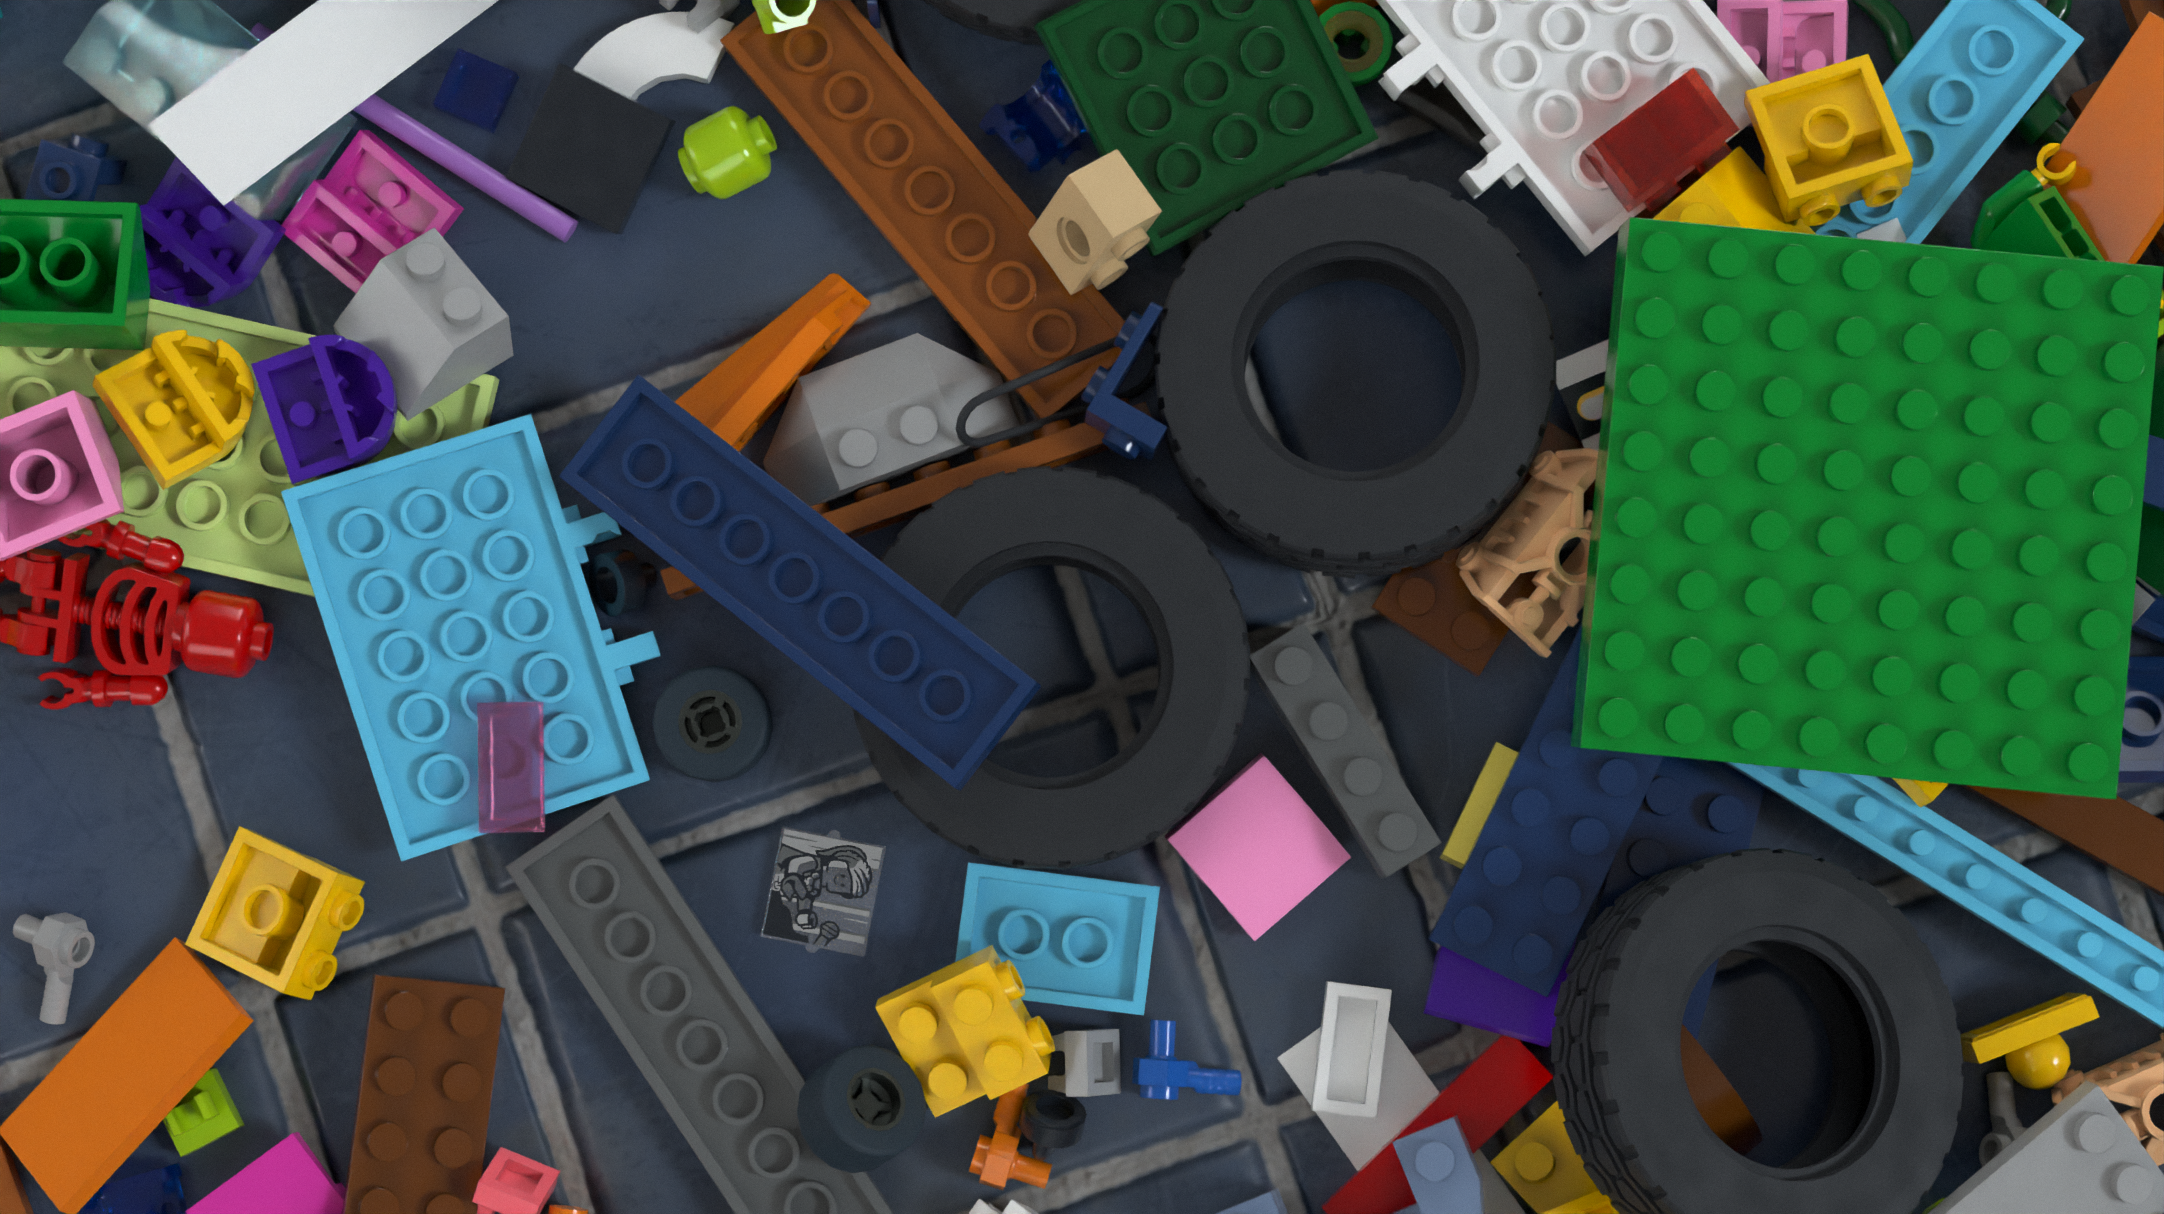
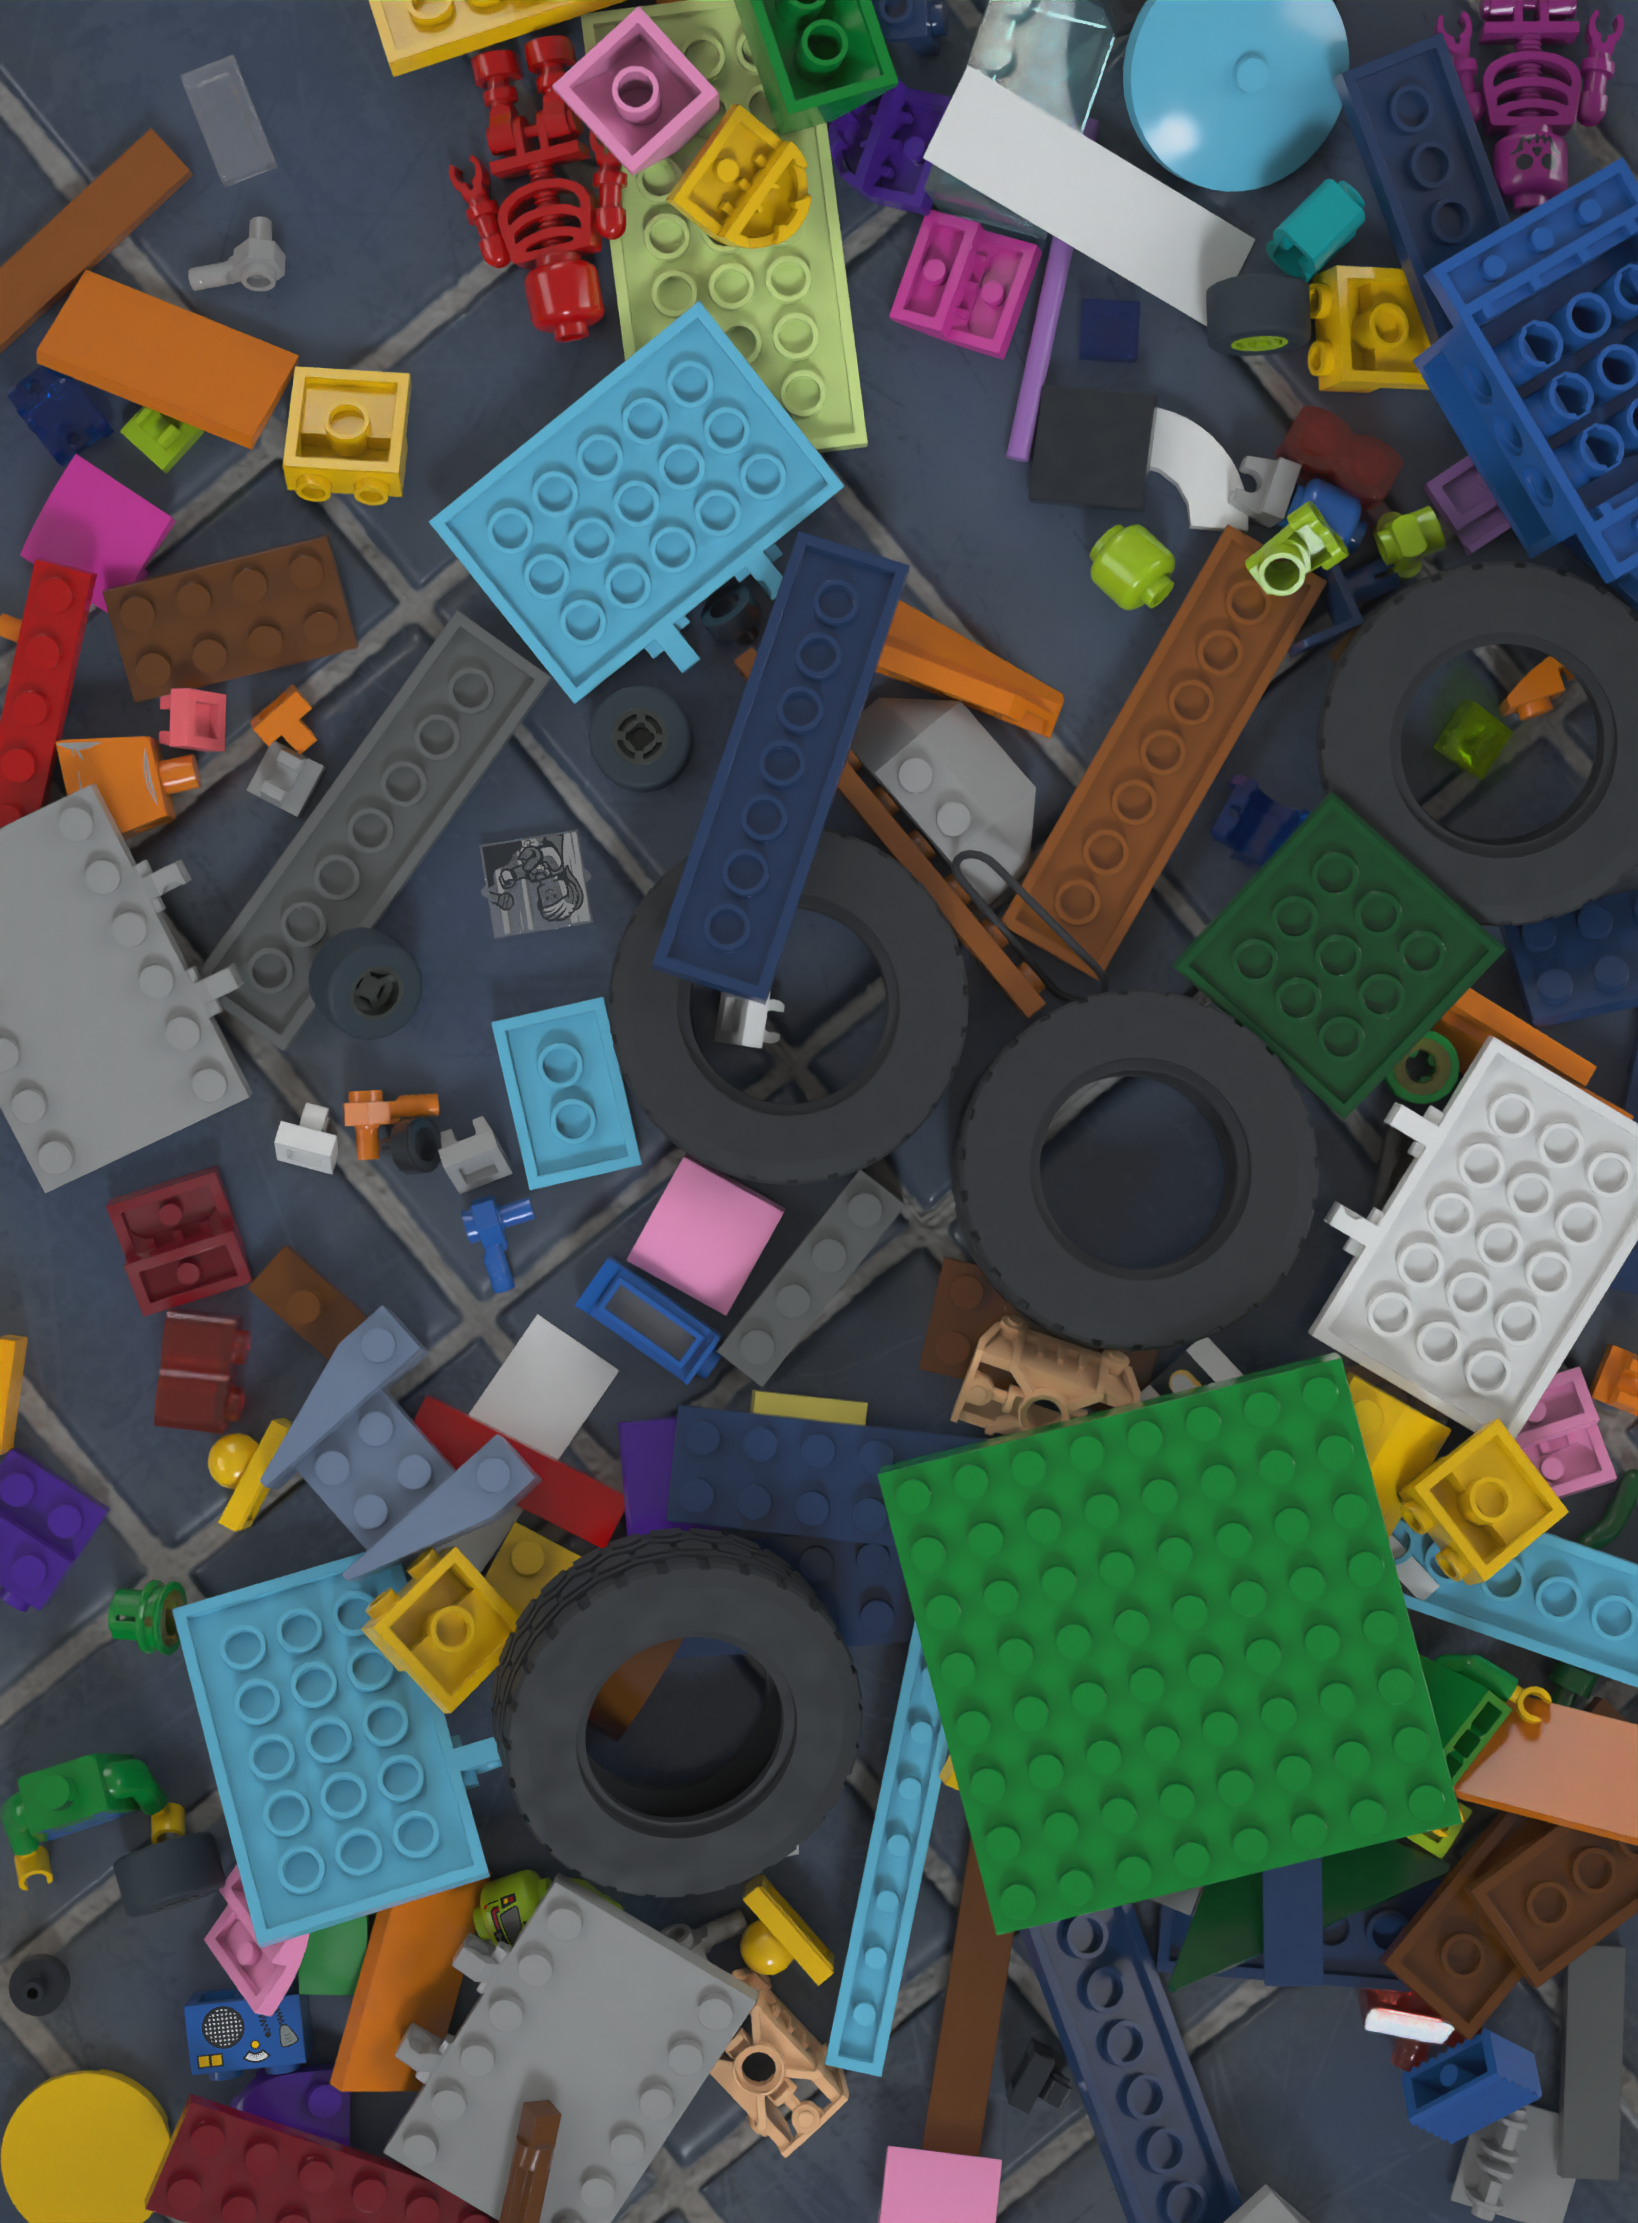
camera: 75 degrees right, 5 degrees up
(327, 406) = (787, 311): dark purple slope -> none
(427, 322) = (887, 366): light grey slope -> none
(511, 767) = (540, 584): clear pink tile -> none
(548, 1093) = (284, 719): none -> orange tile
(613, 1115) = (286, 779): none -> light grey tile
(967, 1031) = (462, 1048): yellow plate -> none
(1047, 724) = (744, 1021): none -> white tile
(1095, 223) = (1180, 905): tan brick -> none
(1125, 427) = (1013, 995): dark blue bracket -> none
(1329, 937) = (651, 1321): none -> blue window
(1351, 1049) = (566, 1373): white tile -> none
(1661, 141) = (1426, 1362): clear red brick -> none

